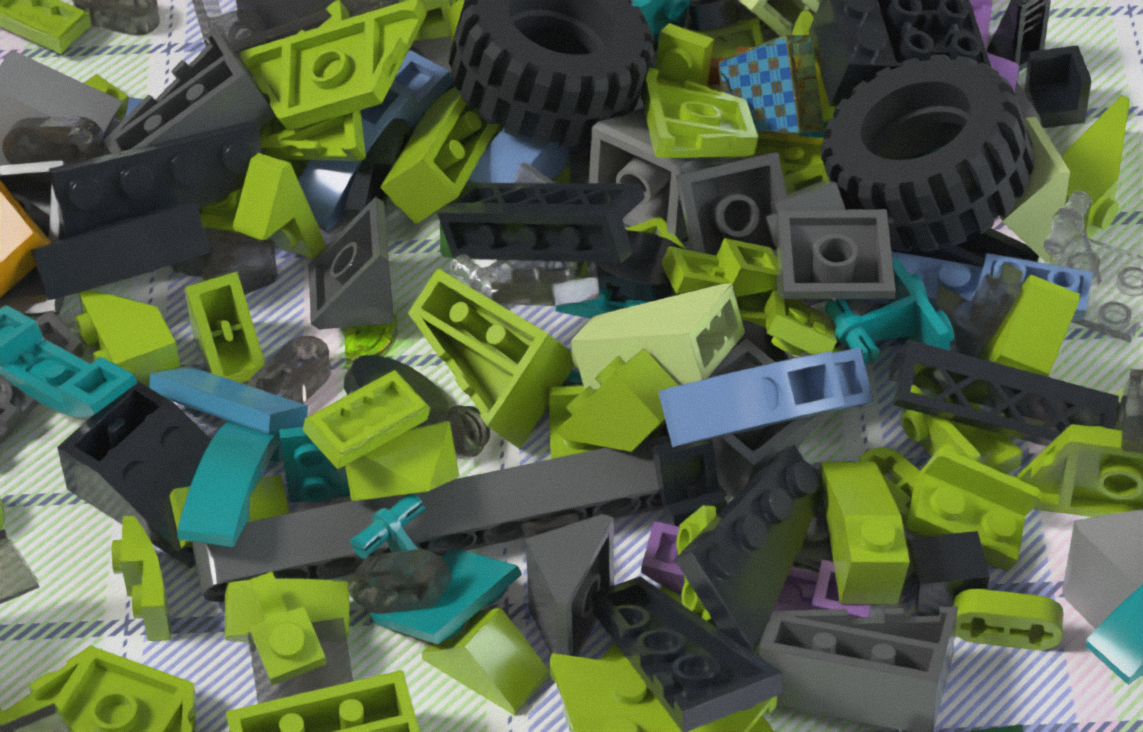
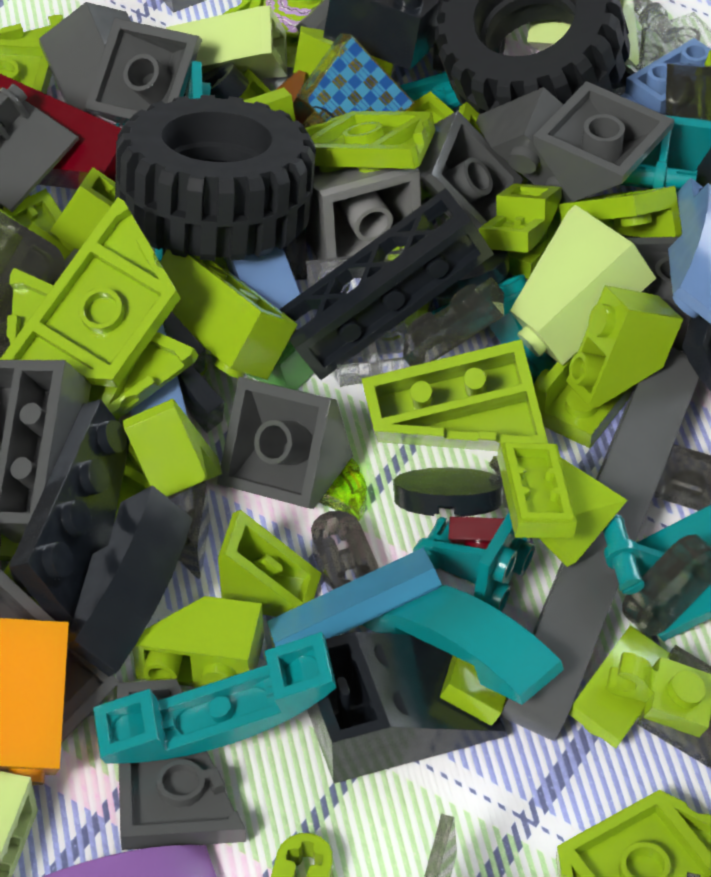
camera: 55 degrees left, 0 degrees up
(143, 578) = (488, 762): lime slope -> none

